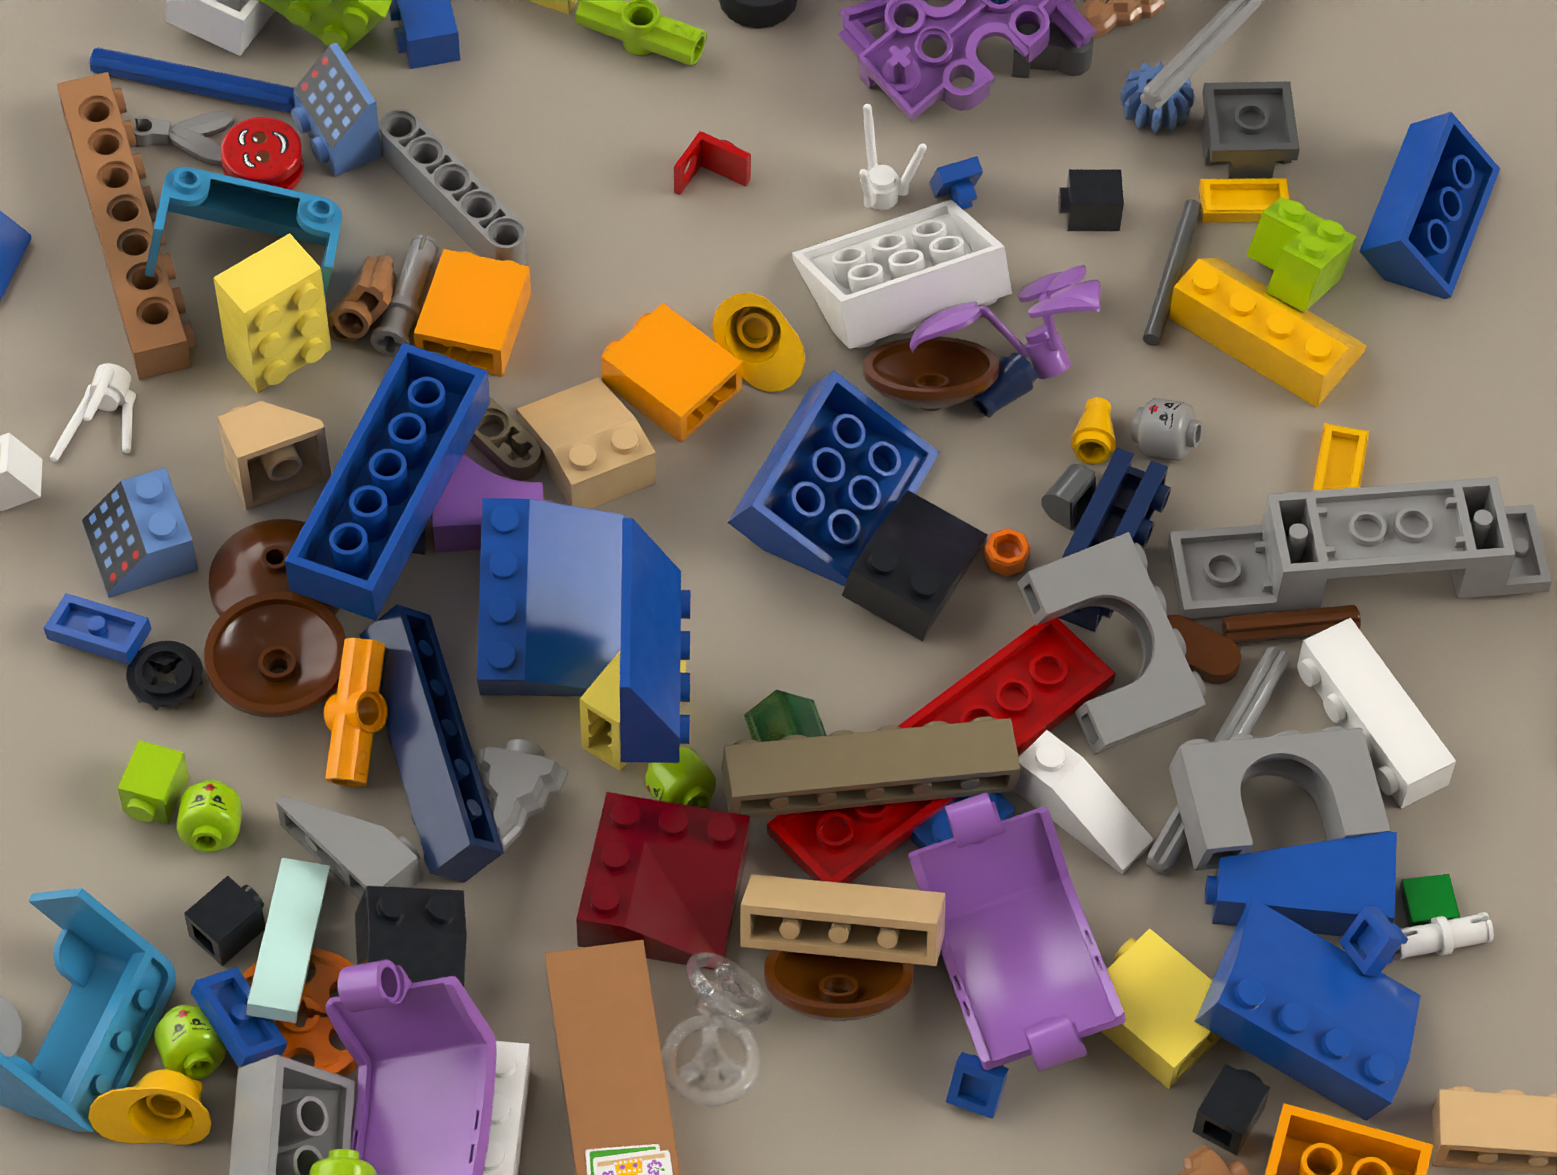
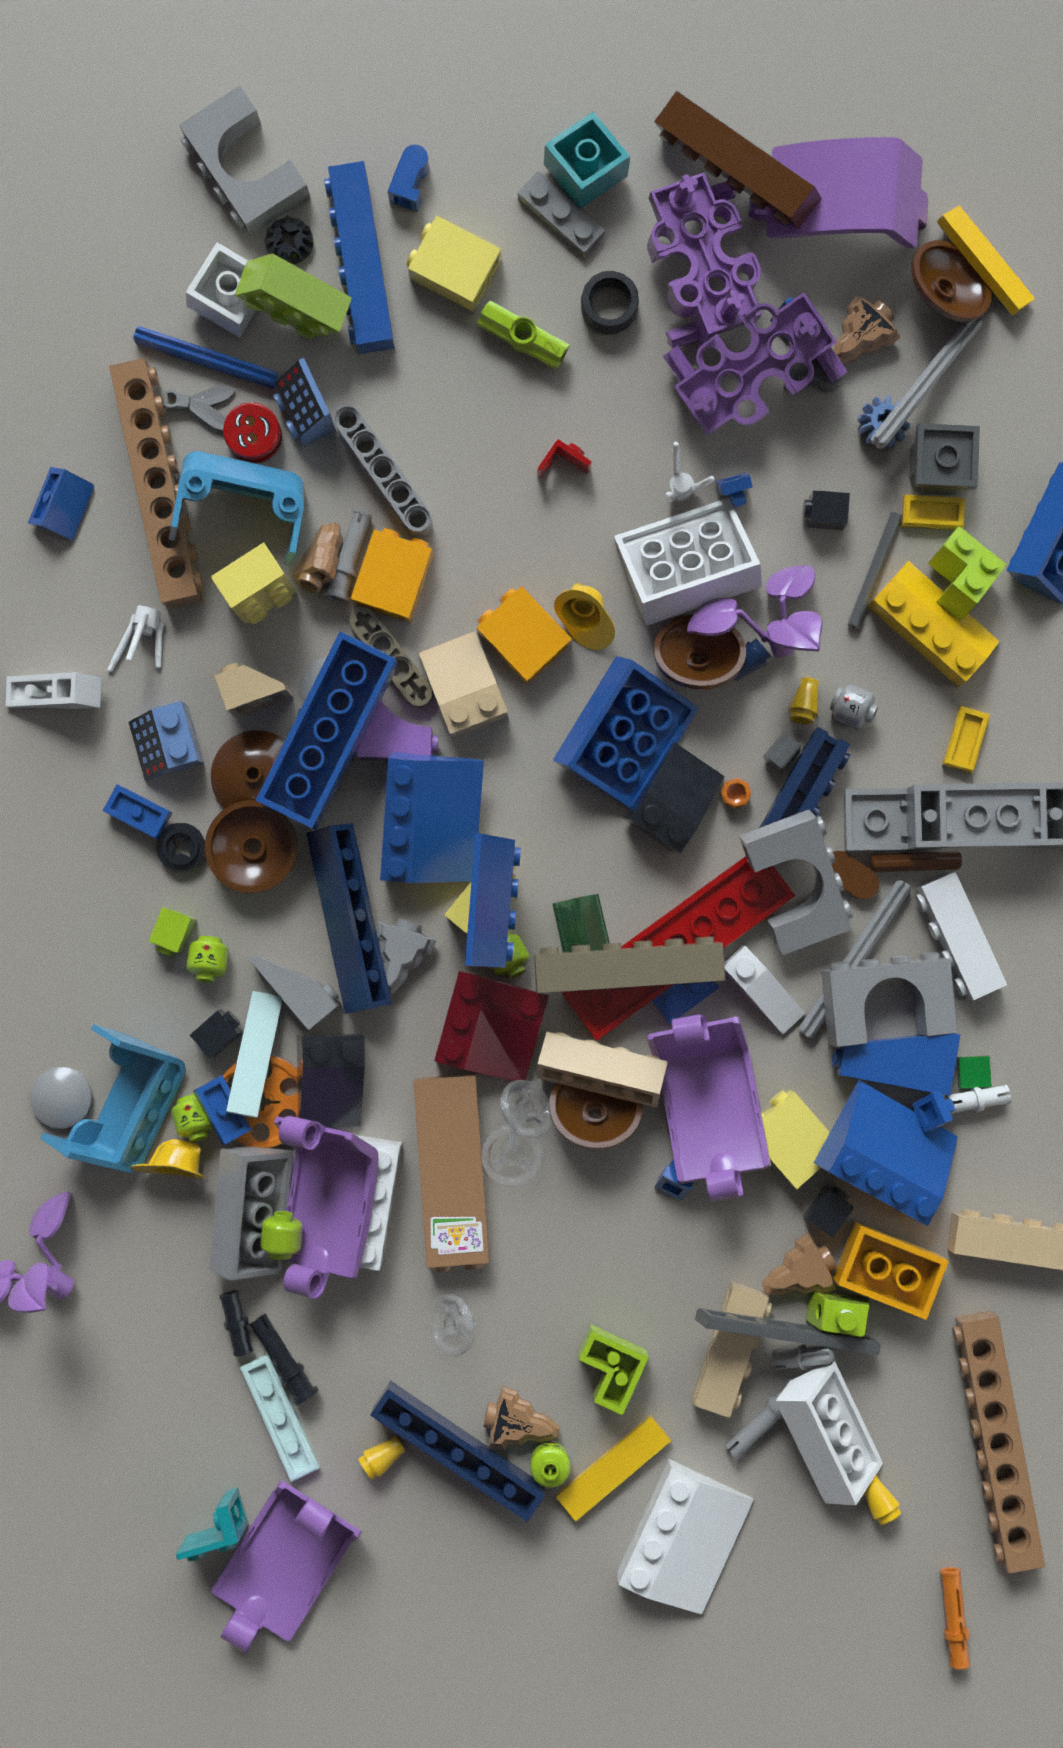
camera: 10 degrees right, 30 degrees up
(355, 712) = (301, 894): light orange piece -> none

